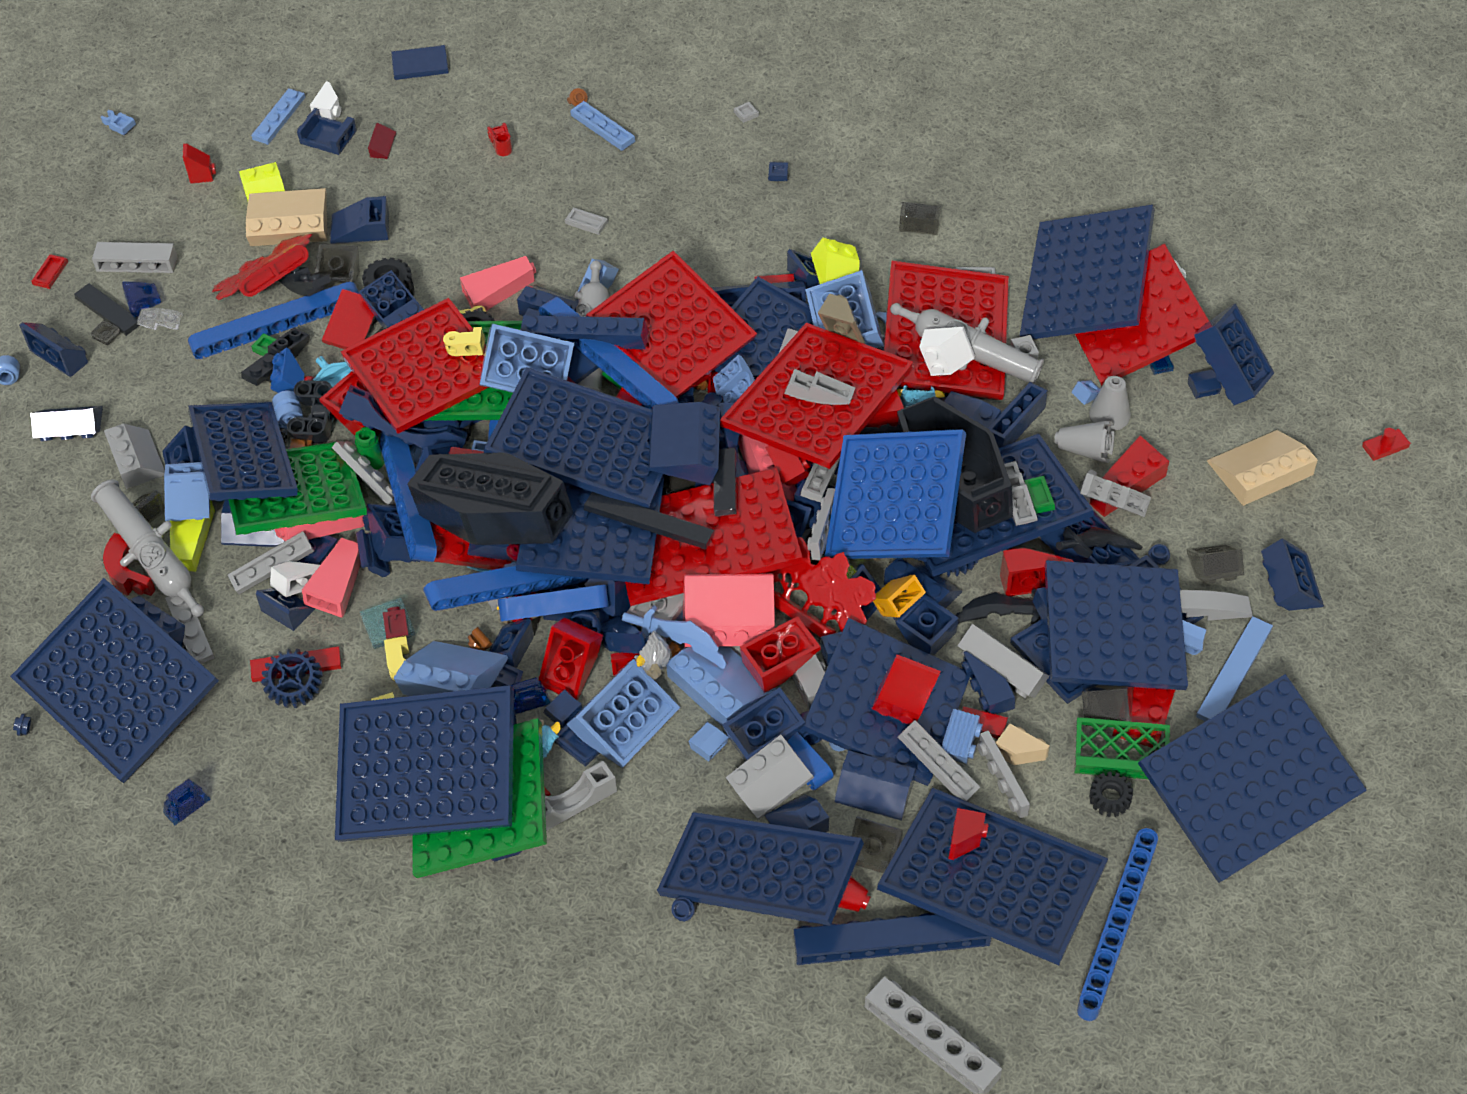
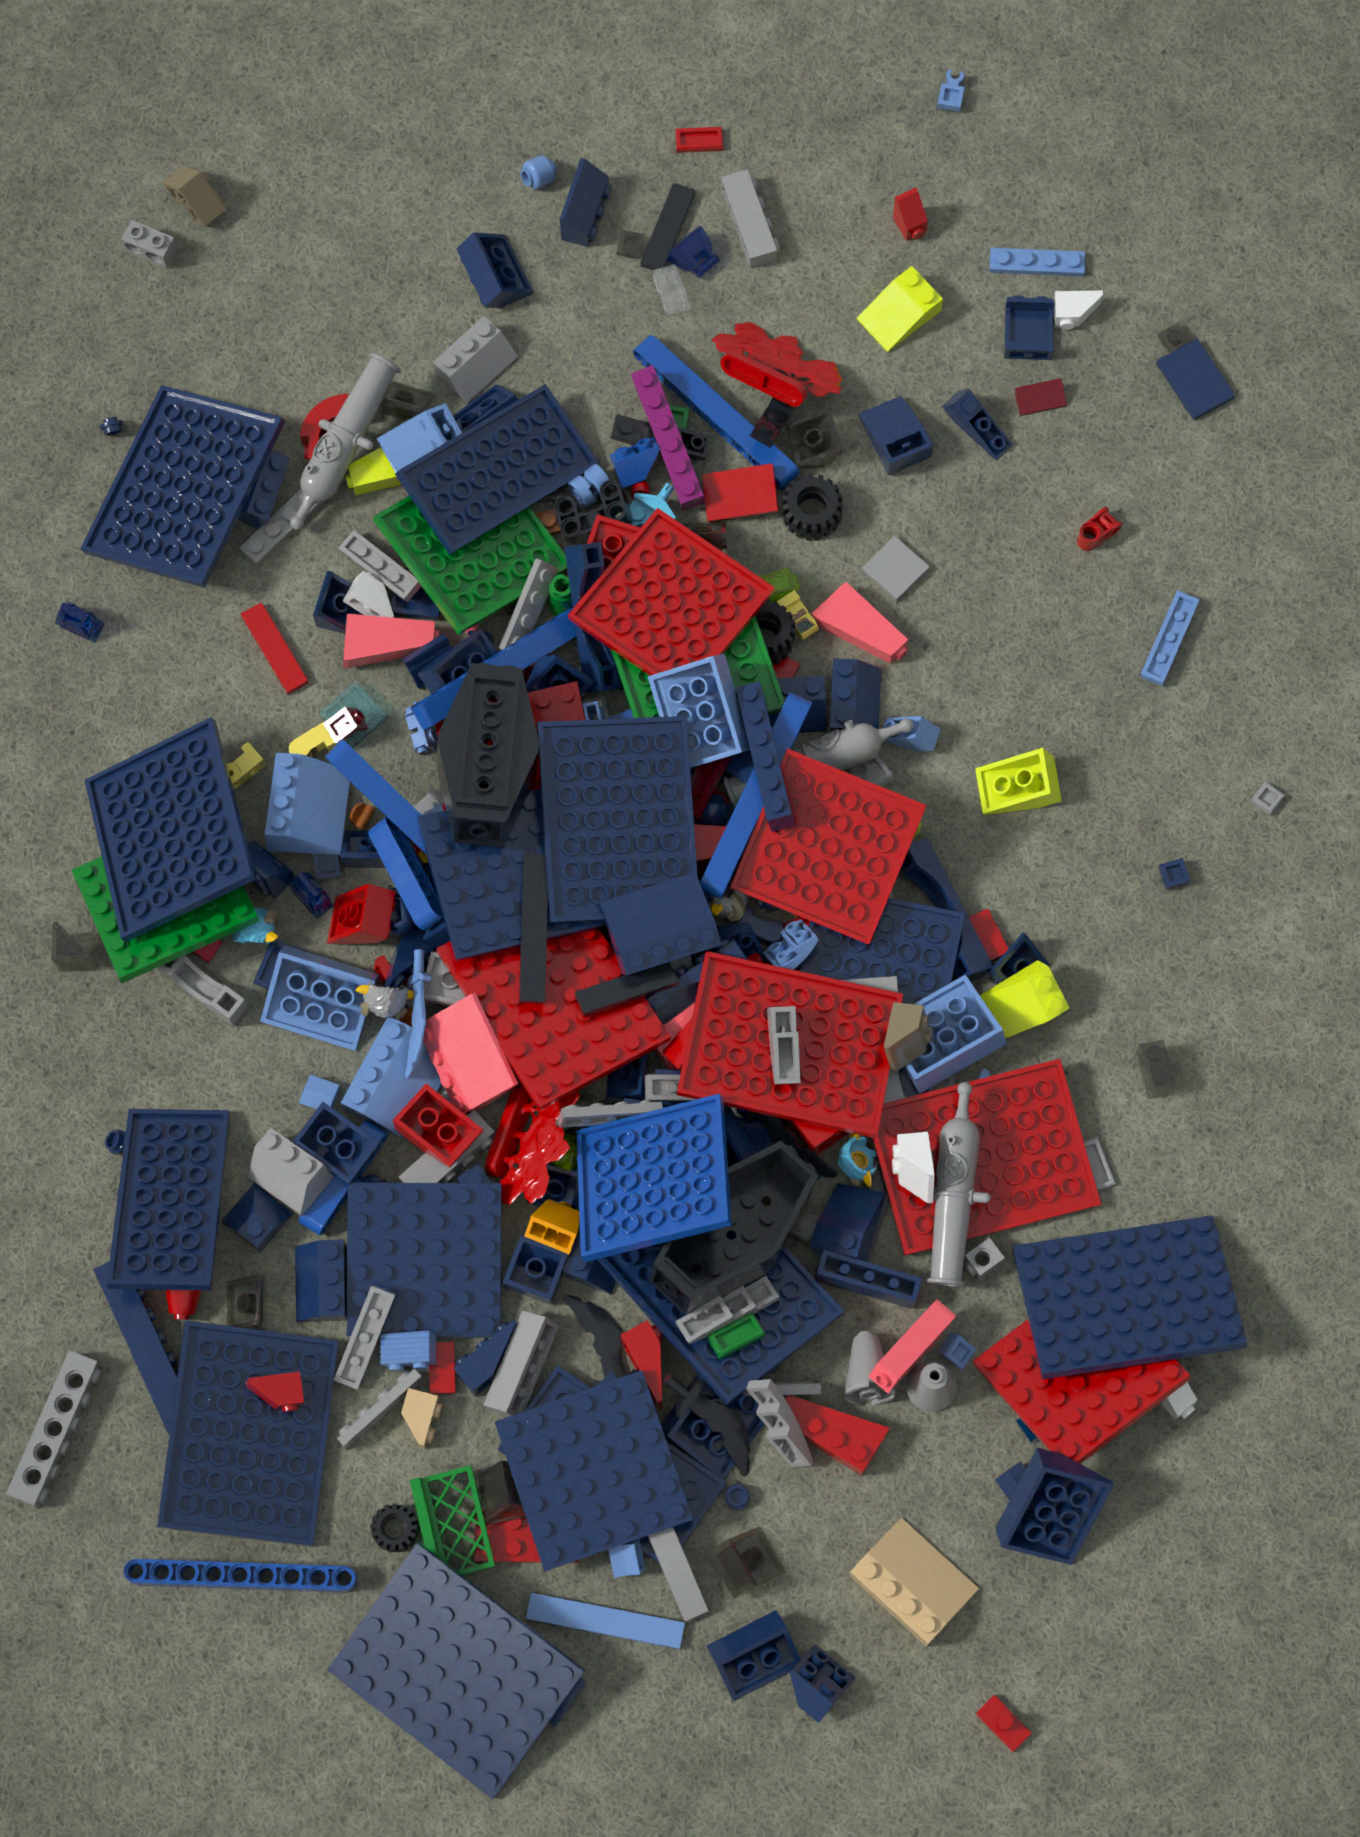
camera: 70 degrees right, 20 degrees up
(246, 343) = (668, 438): none -> magenta arch
(279, 692) = (253, 635): dark blue gear -> none
(286, 215) = (870, 349): tan slope -> none
(374, 178) = (977, 423): none -> dark blue slope
(383, 64) = (1174, 337): none -> clear smoke plate
(390, 300) = (770, 529): dark blue slope -> none
(417, 577) = (423, 738): none -> medium blue hinge
(463, 256) = (895, 568): none -> light grey tile
(465, 342) = (702, 635): light yellow leg -> none
(490, 888) = (68, 953): none -> clear smoke slope
(563, 708) = (309, 934): dark blue piece -> none
(577, 96) = (1207, 590): dark orange plate -> none
(586, 221) = (1005, 682): light grey tile -> none
(668, 229) = (1019, 783): none -> neon yellow slope
(905, 689) = (413, 1272): red slope -> none
(1082, 399) = (912, 1346): none -> coral slope
(1329, 540) = (819, 1682): none -> dark blue slope

